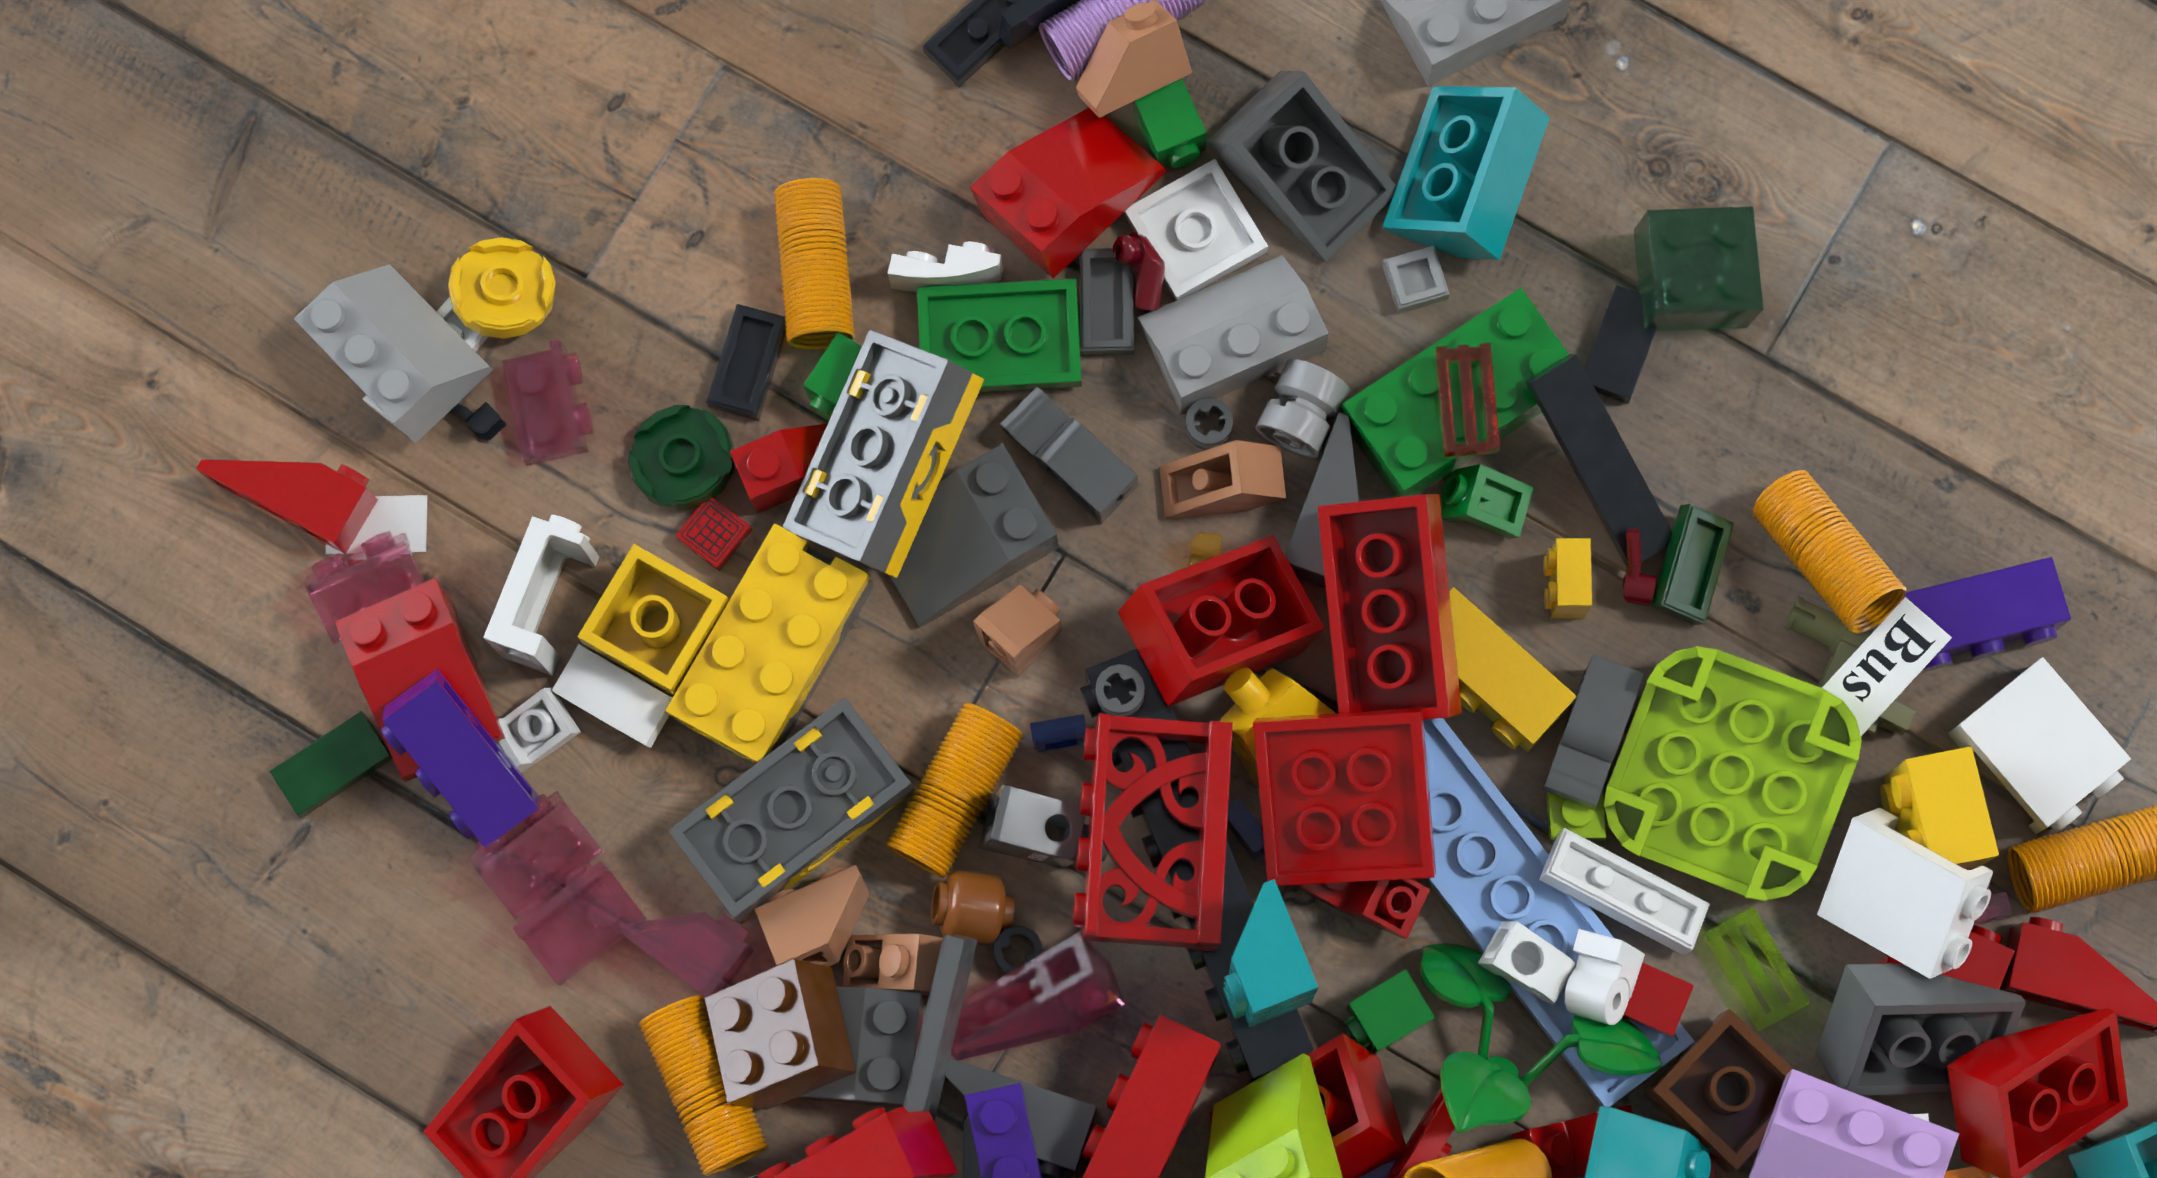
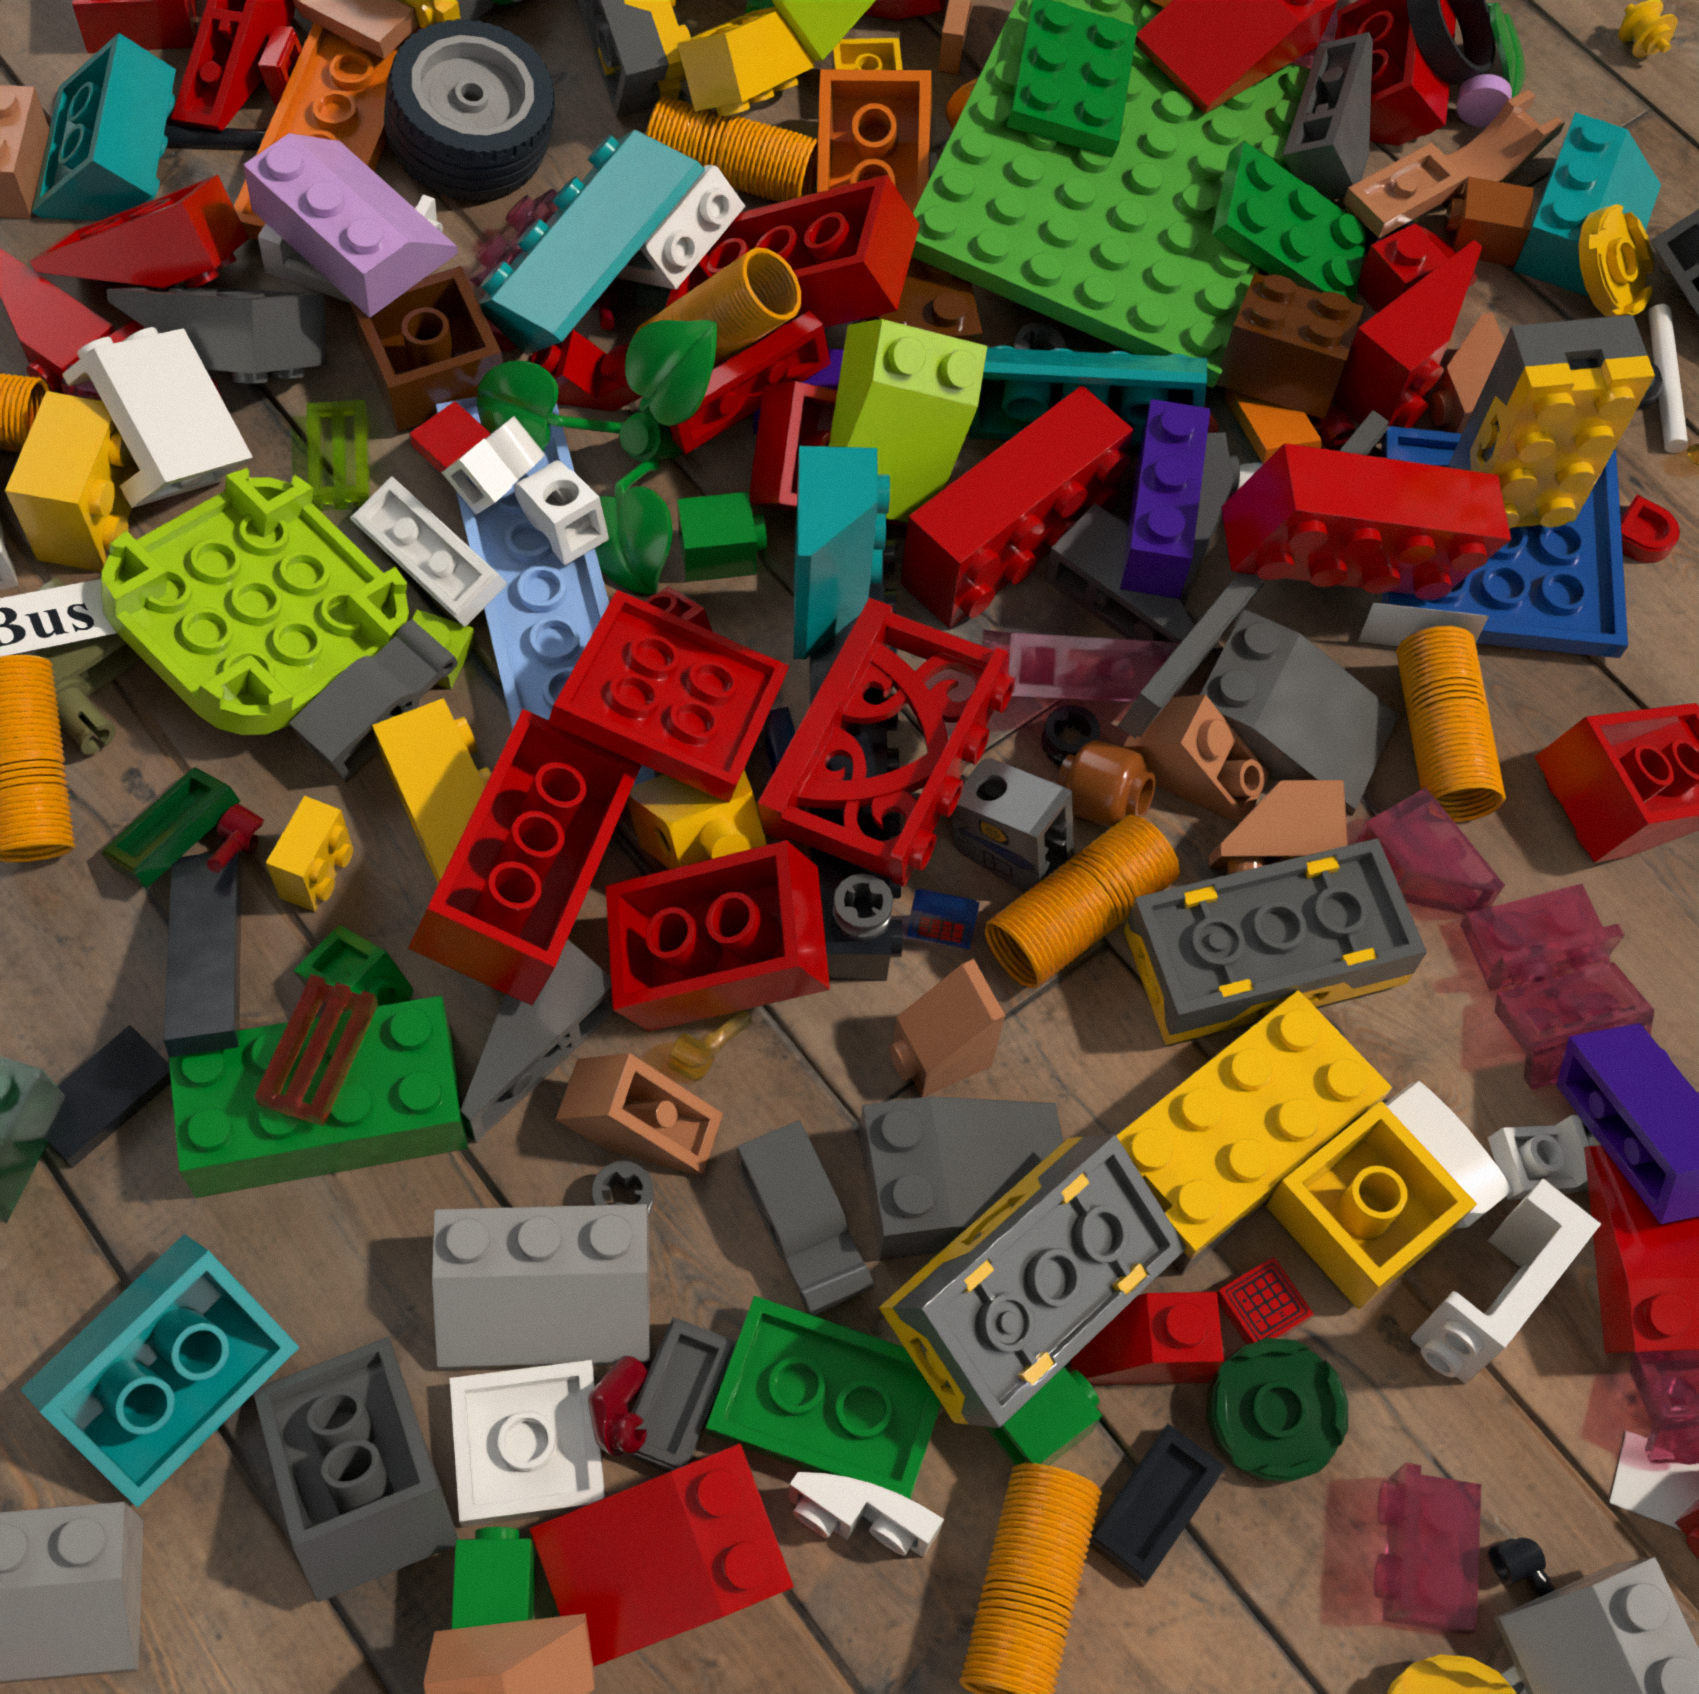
camera: 170 degrees left, 15 degrees down
(779, 1034) = (1359, 717): brick -> none
(1301, 412) = (508, 1153): light grey wheel -> none
(1415, 279) = (294, 1270): light grey tile -> none

